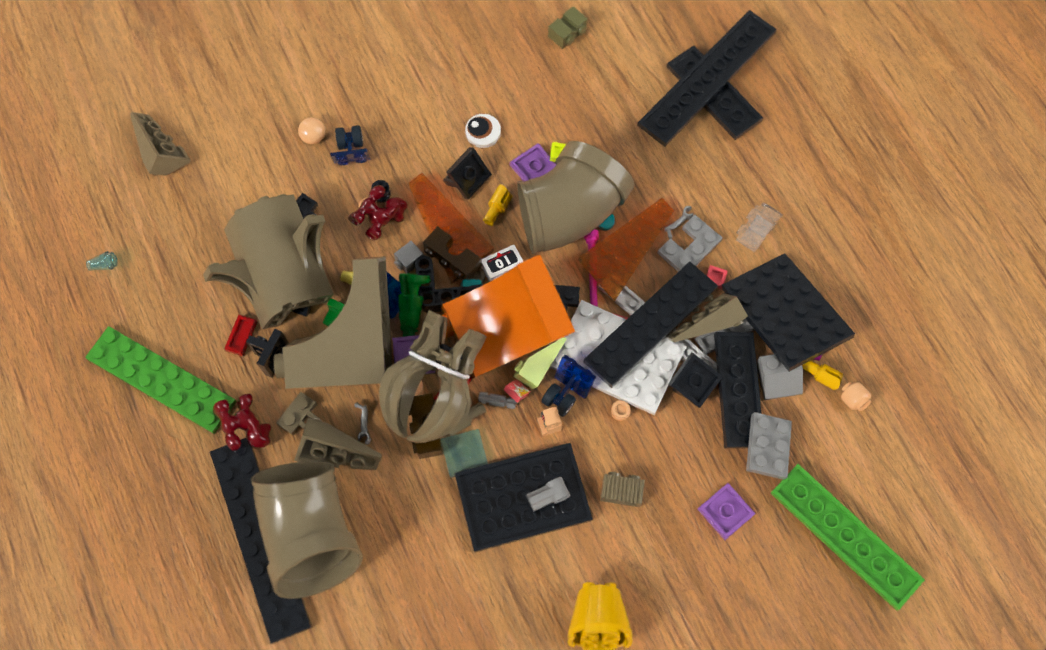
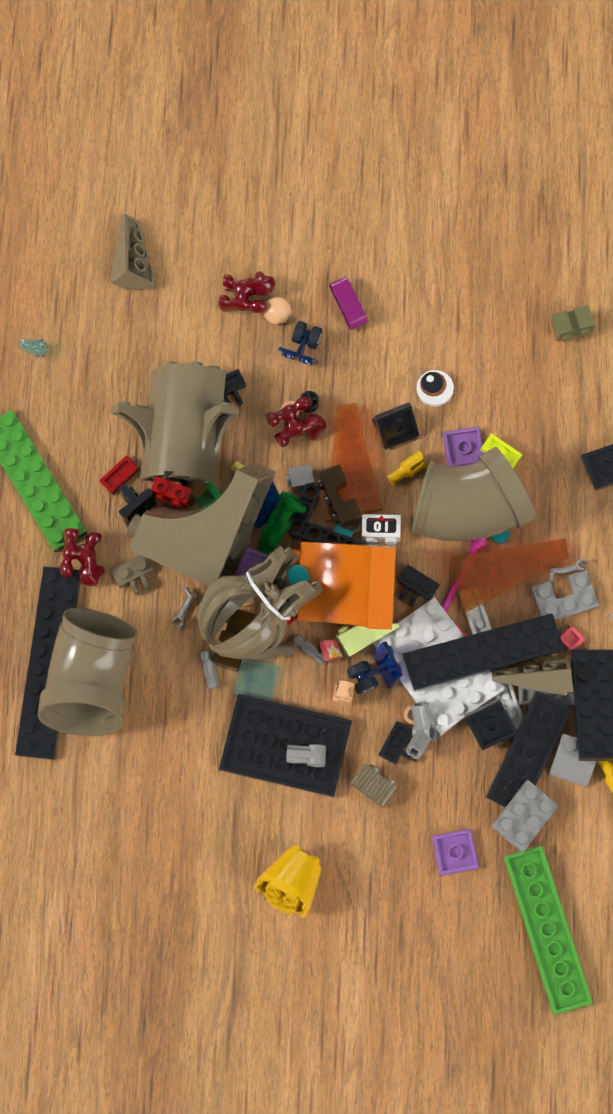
camera: 35 degrees right, 5 degrees up
(273, 126) = (243, 290): none -> dark red animal
(298, 323) = (172, 492): none -> red plate
(327, 443) = (143, 612): dark tan wedge -> none
(371, 96) = (348, 303): none -> magenta beam
(416, 465) = (209, 669): none -> light grey axle
(454, 334) = (297, 574): none -> teal tile
(620, 442) = (395, 744): none -> black hinge
(638, 418) = (422, 731): none -> light grey piece

